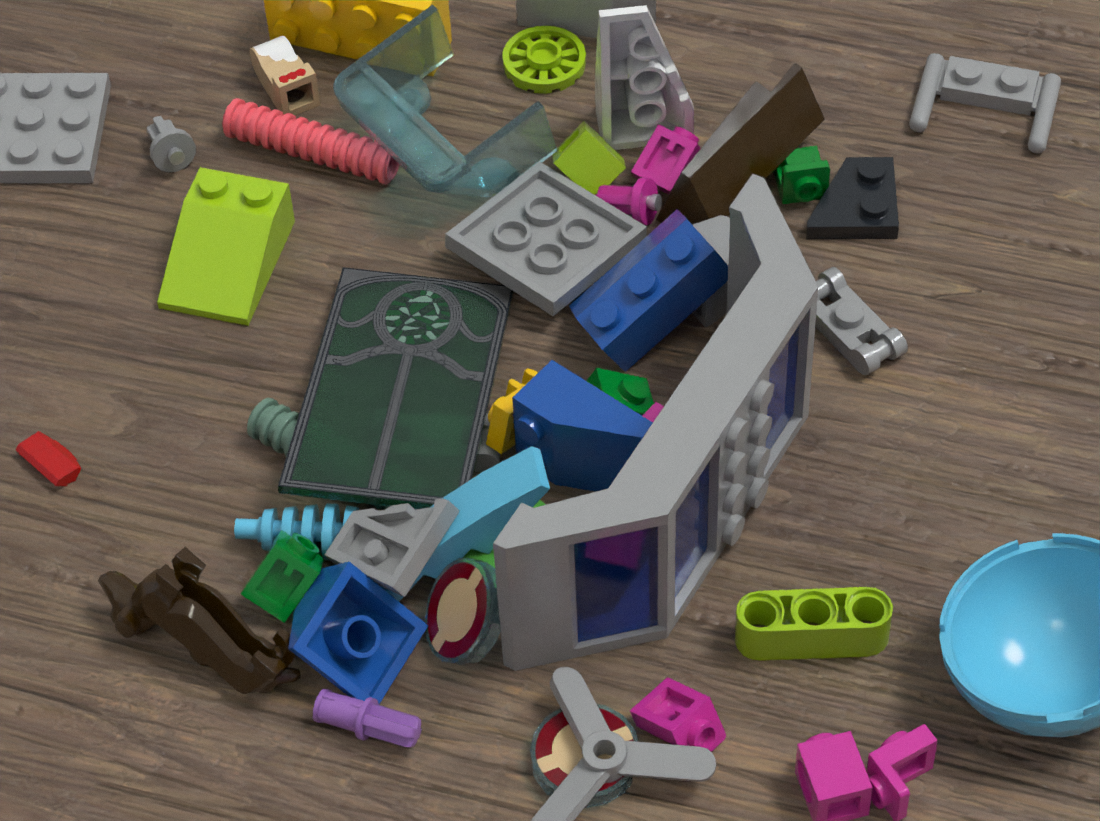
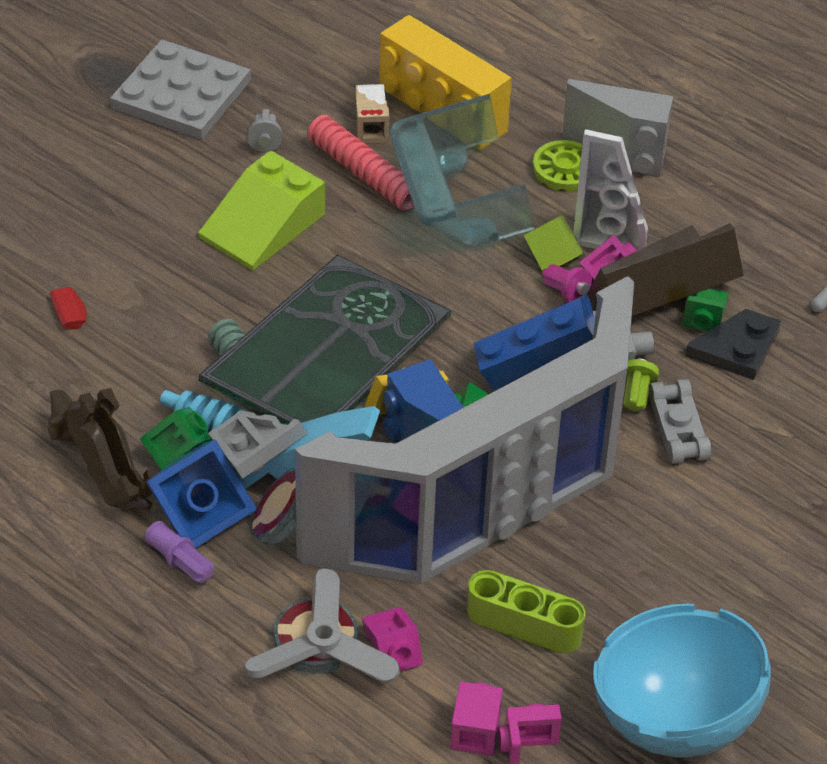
camera: 20 degrees right, 5 degrees down
(545, 238) = (489, 284): light grey plate -> none

